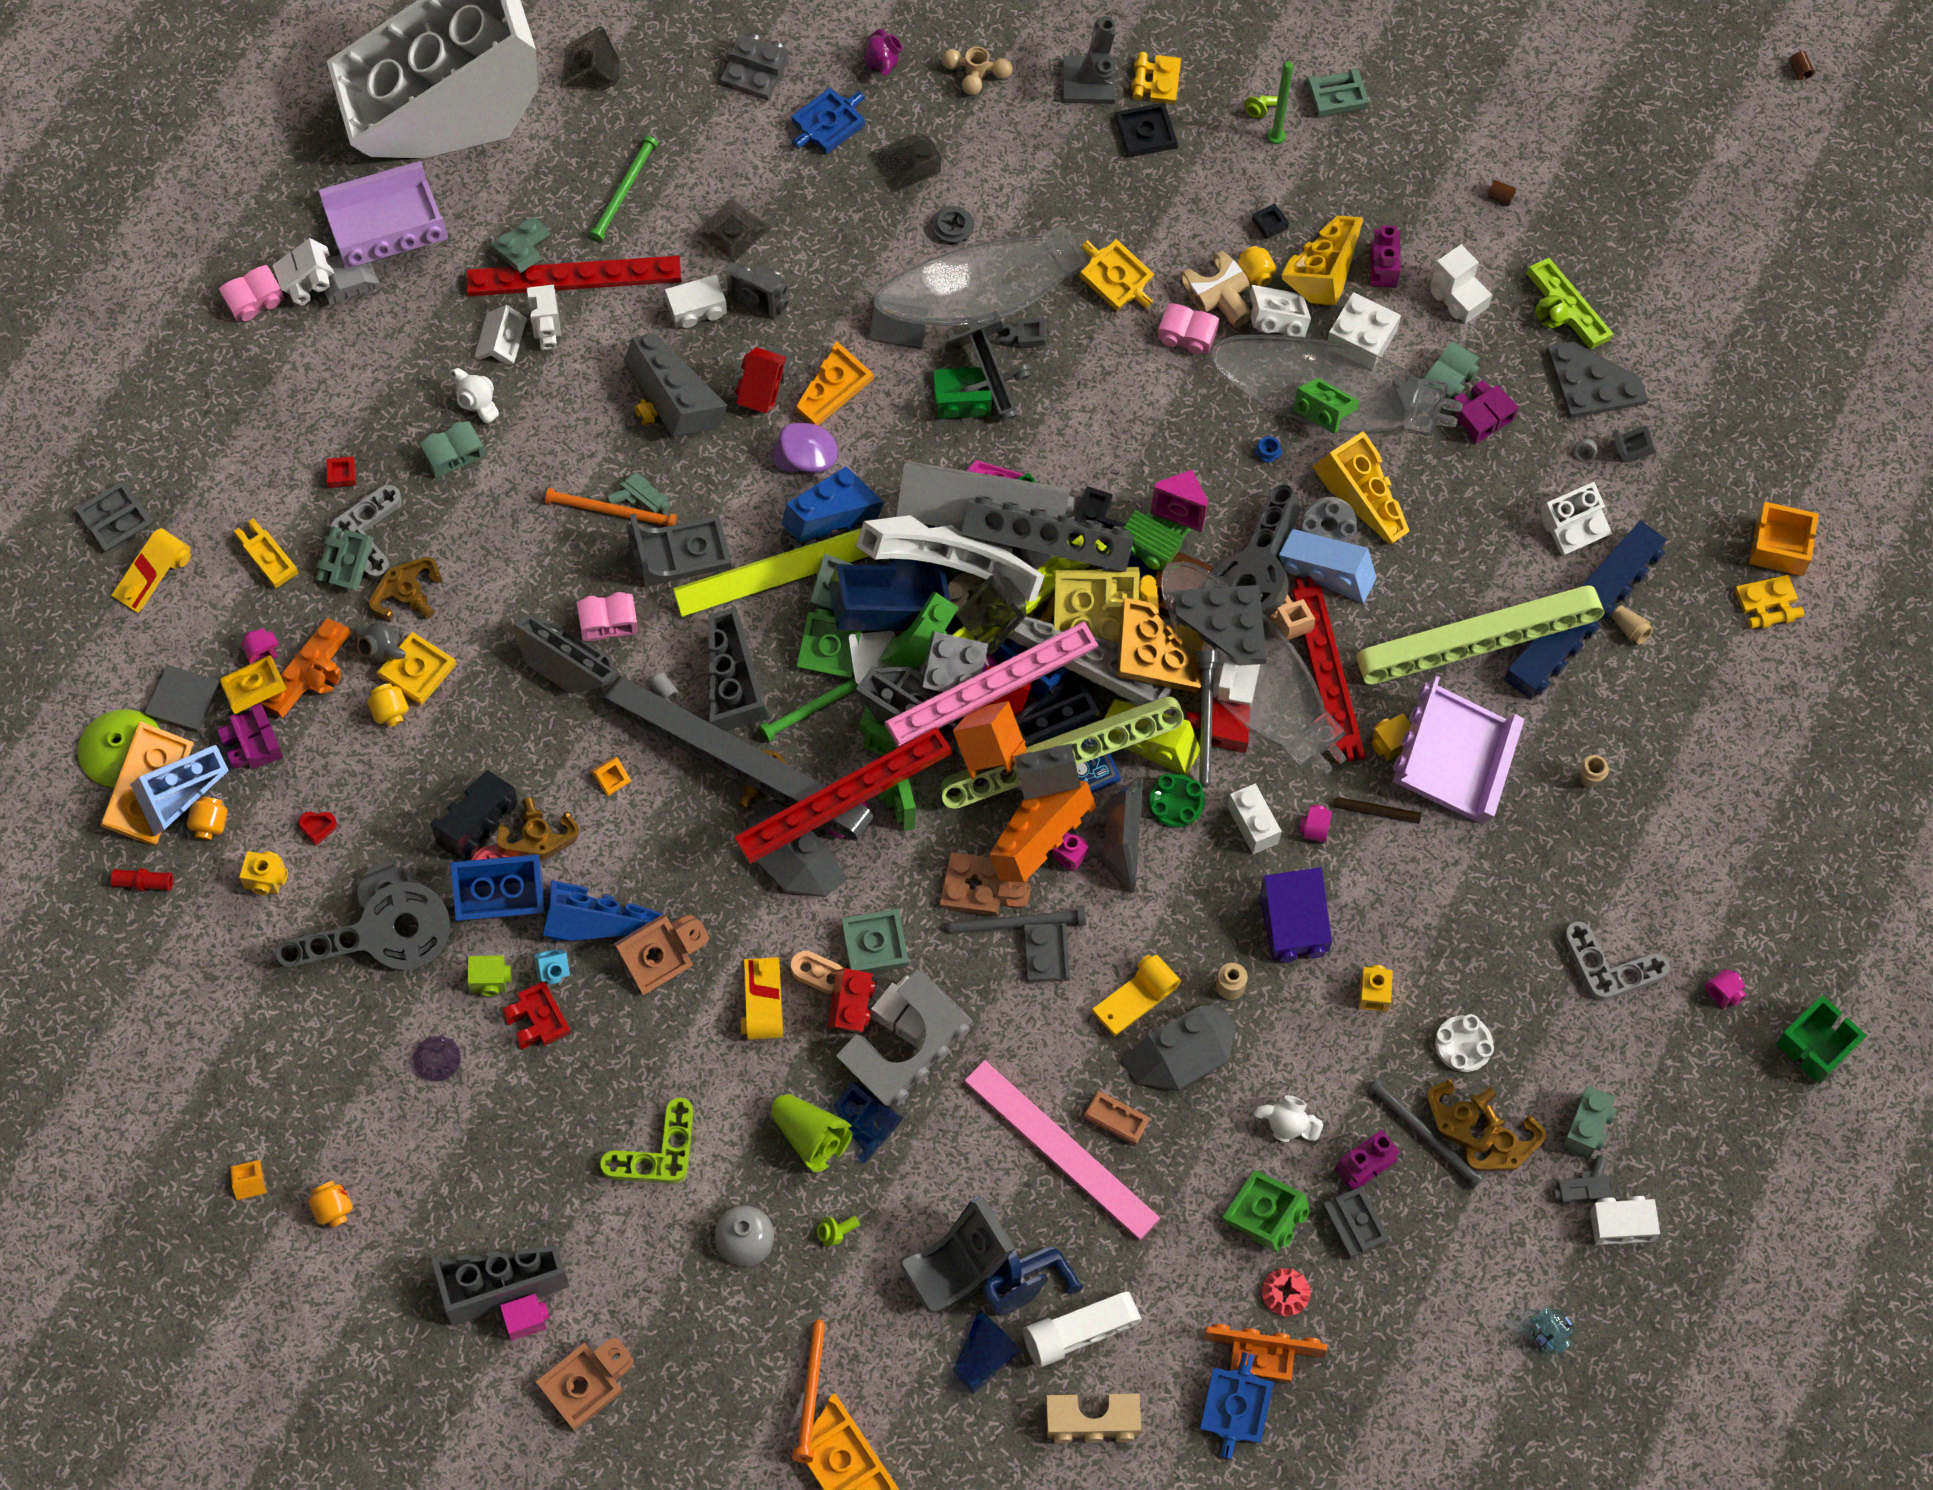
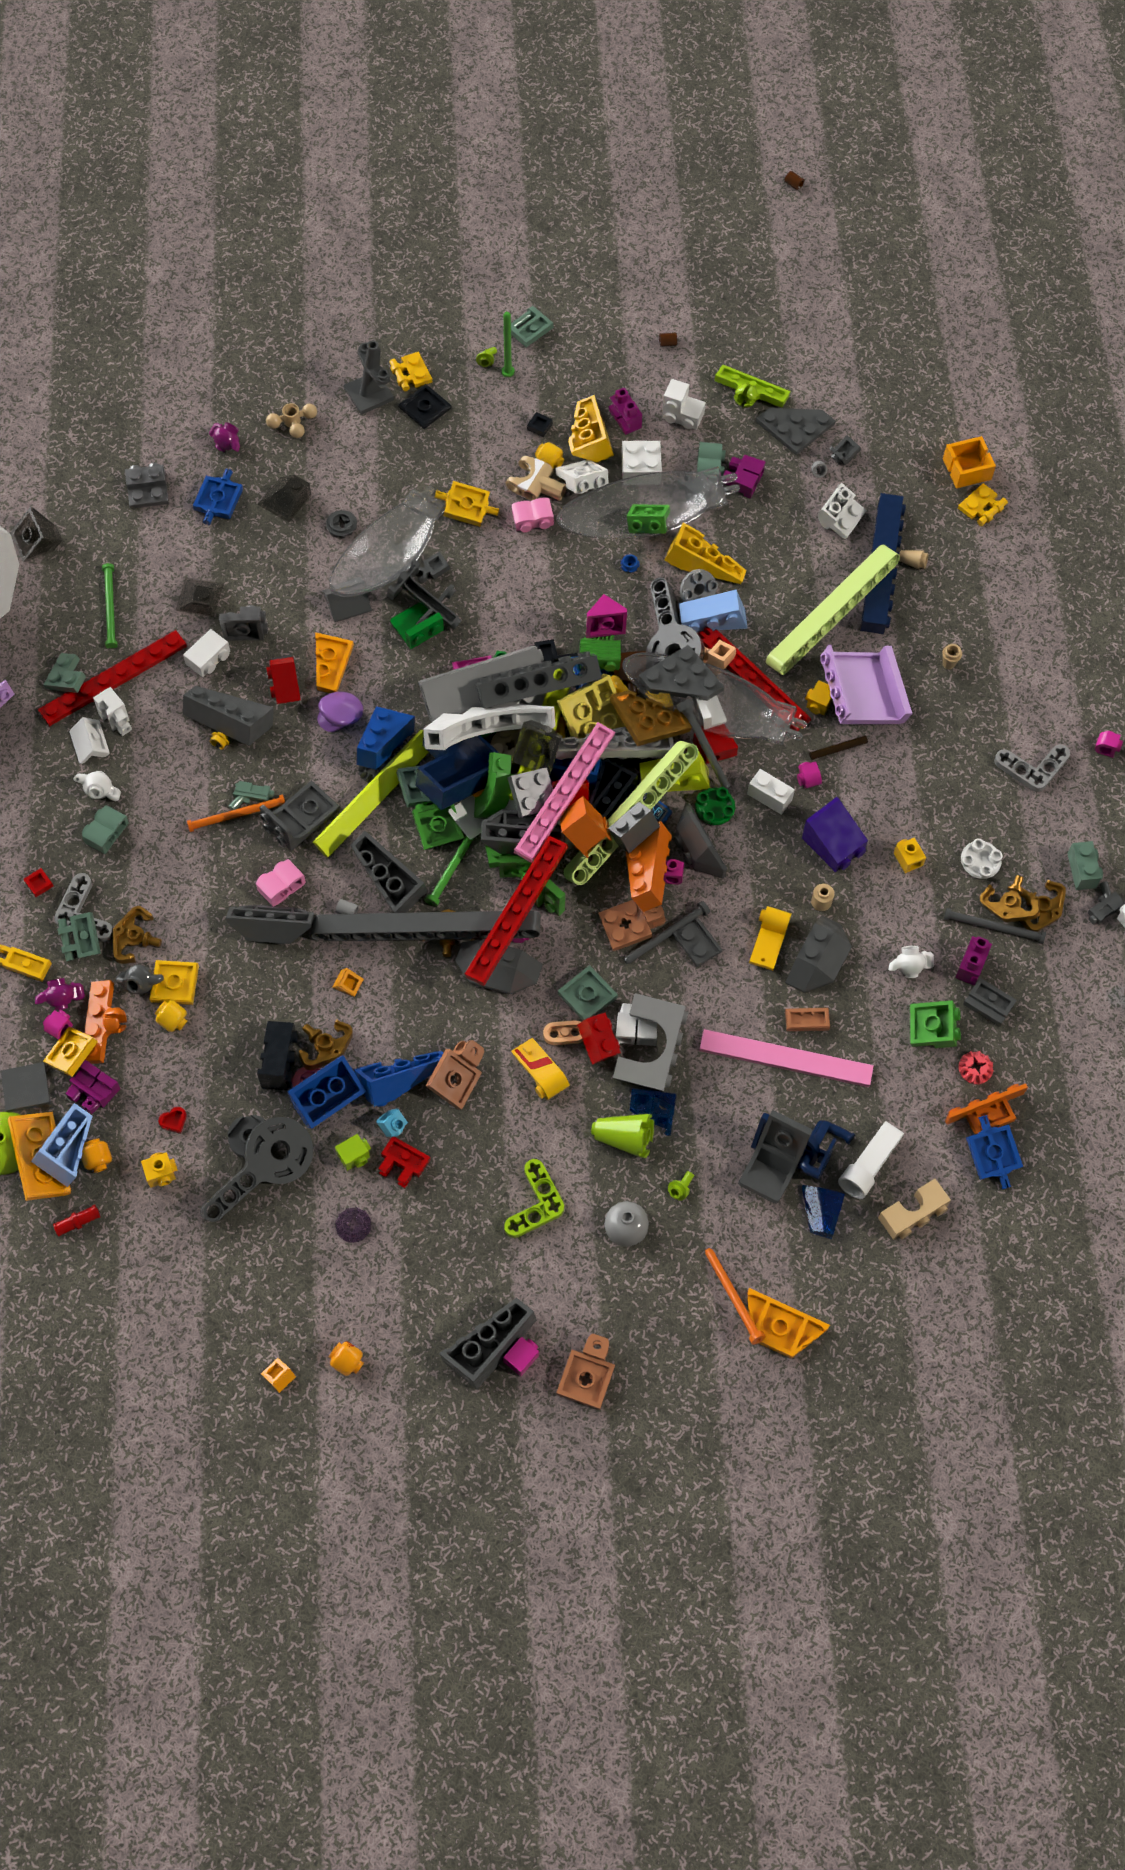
camera: 30 degrees left, 0 degrees up
(283, 613) = (60, 994): none -> magenta piece

